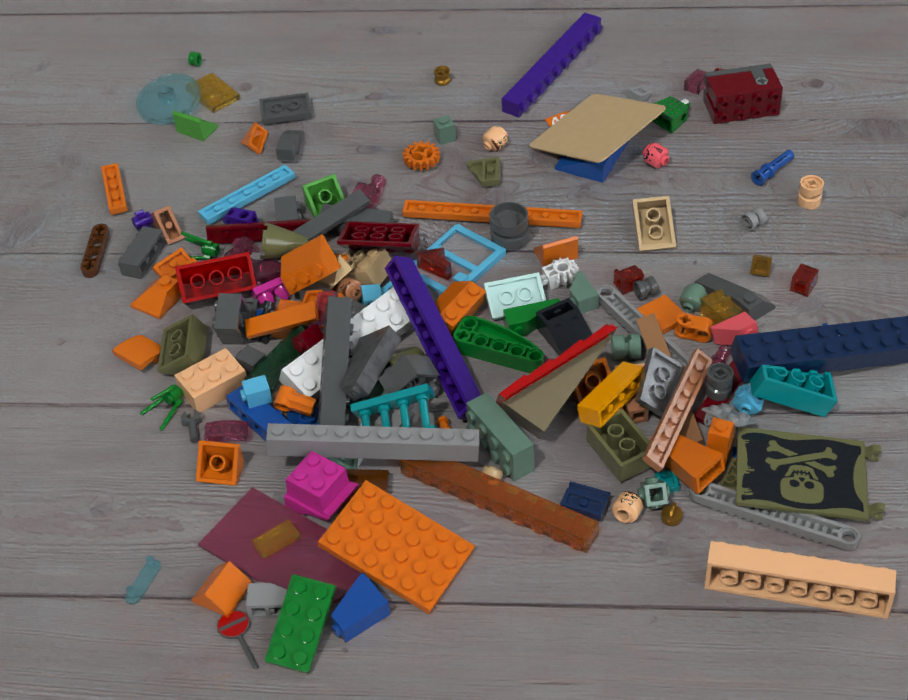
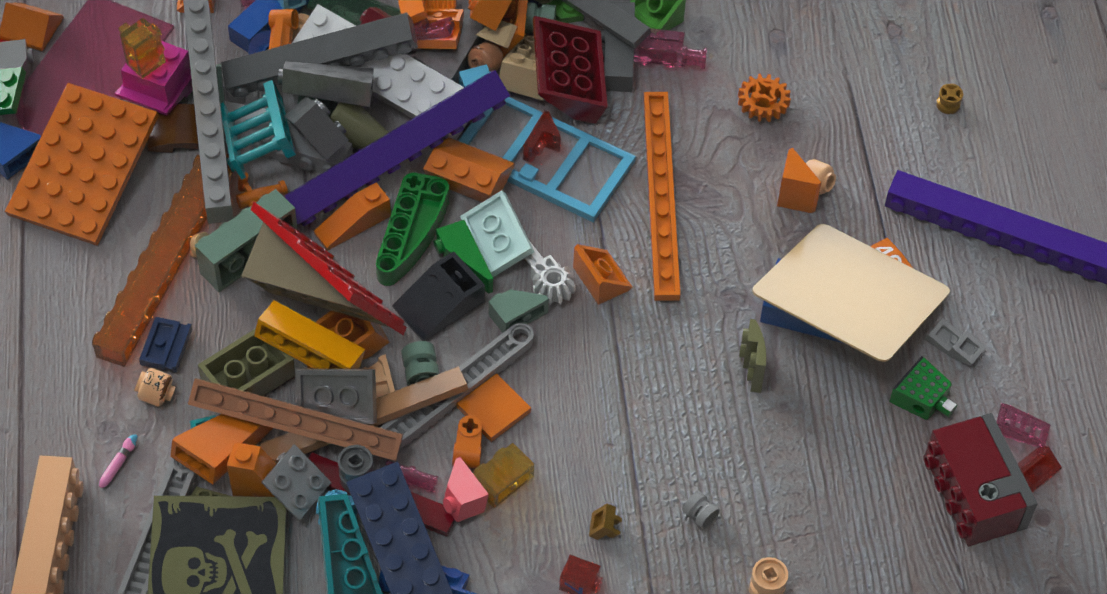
camera: 75 degrees right, 10 degrees up
(275, 539) = (97, 57): clear yellow tile -> none
(317, 464) = (142, 46): none -> clear yellow brick
(444, 130) = (822, 115): sand green brick -> none
(481, 372) = (354, 216): none -> orange slope
(486, 171) = (748, 177): olive wing -> none
(502, 142) = (798, 185): none -> orange slope
(509, 225) = (624, 208): dark grey wheel -> none
(624, 278) = (552, 361): clear red brick -> none
(641, 175) = (754, 355): none -> olive slope
(645, 287) = (538, 382): dark grey wheel -> none
(653, 223) = (667, 383): tan slope -> none
(656, 155) = (816, 376): coral head -> none
(660, 495) = (172, 410): sand green brick -> none
(671, 515) = (151, 438): pearl gold tile -> none
(677, 531) = (117, 462): none -> bright pink piece
(691, 297) = (526, 437): sand green head -> none
(749, 301) = (535, 498): dark grey wedge -> none
(768, 169) = (813, 529): blue pin -> none

